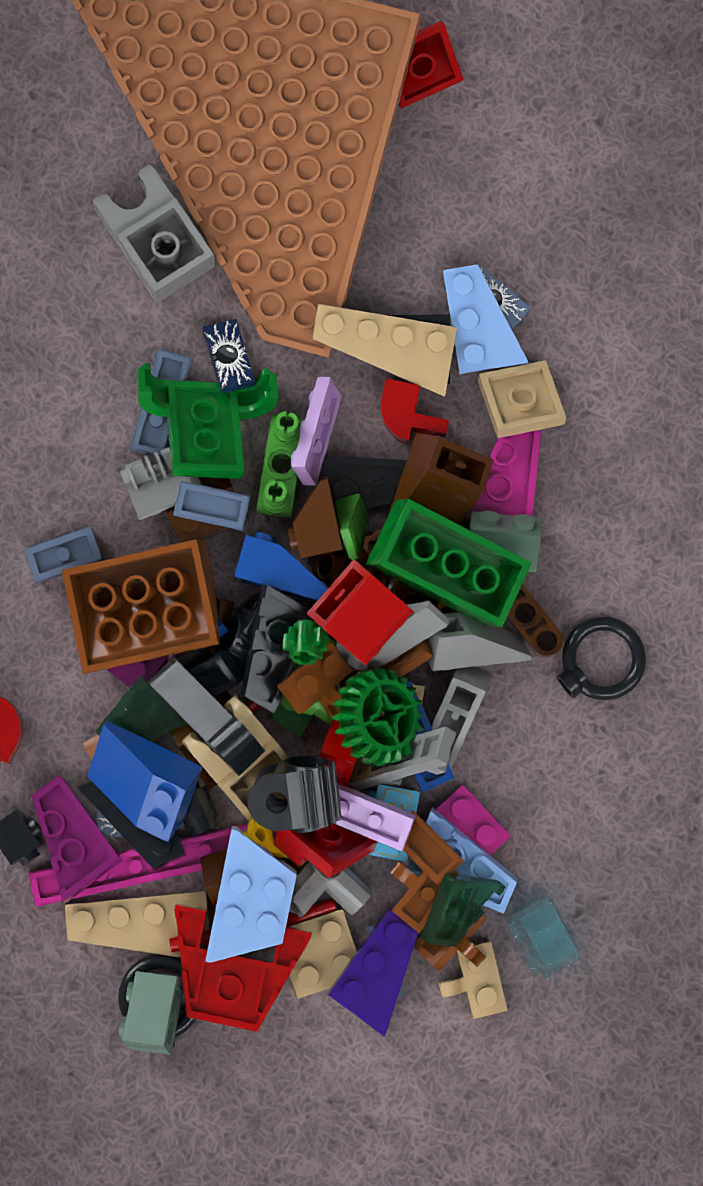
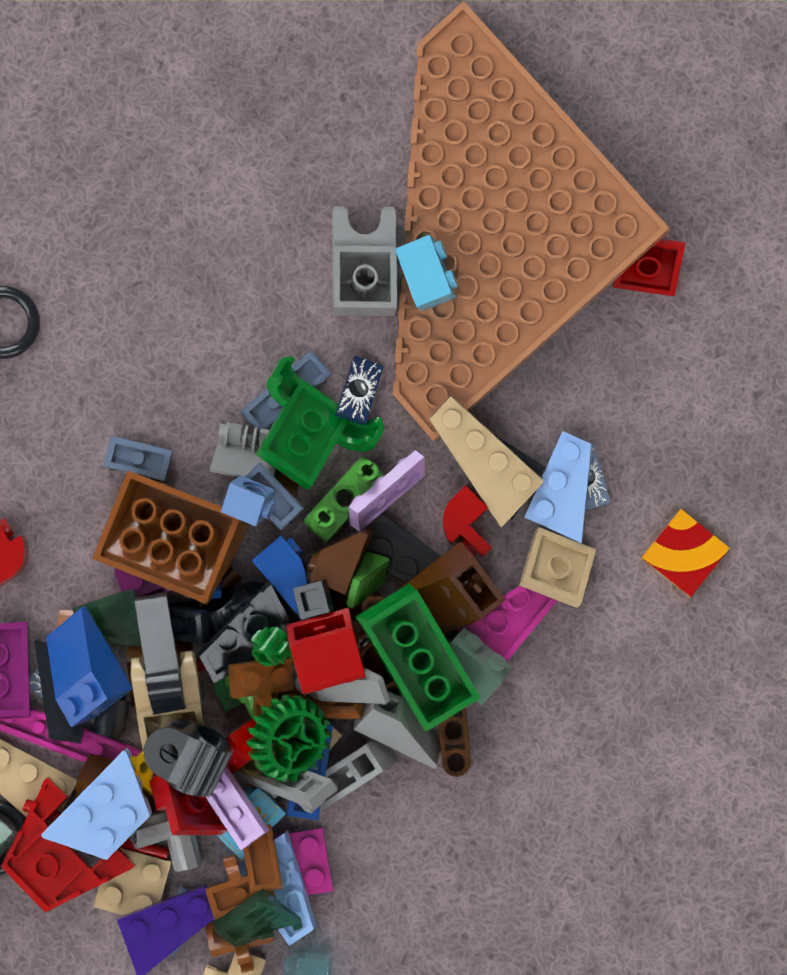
camera: 35 degrees right, 0 degrees up
(195, 521) = (248, 501): none -> medium blue brick
(220, 204) = (426, 272): none -> medium azure brick
(316, 573) = (313, 599): none -> tile
(573, 678) = (458, 803): black piece -> none
(630, 310) = (685, 553): none -> tile

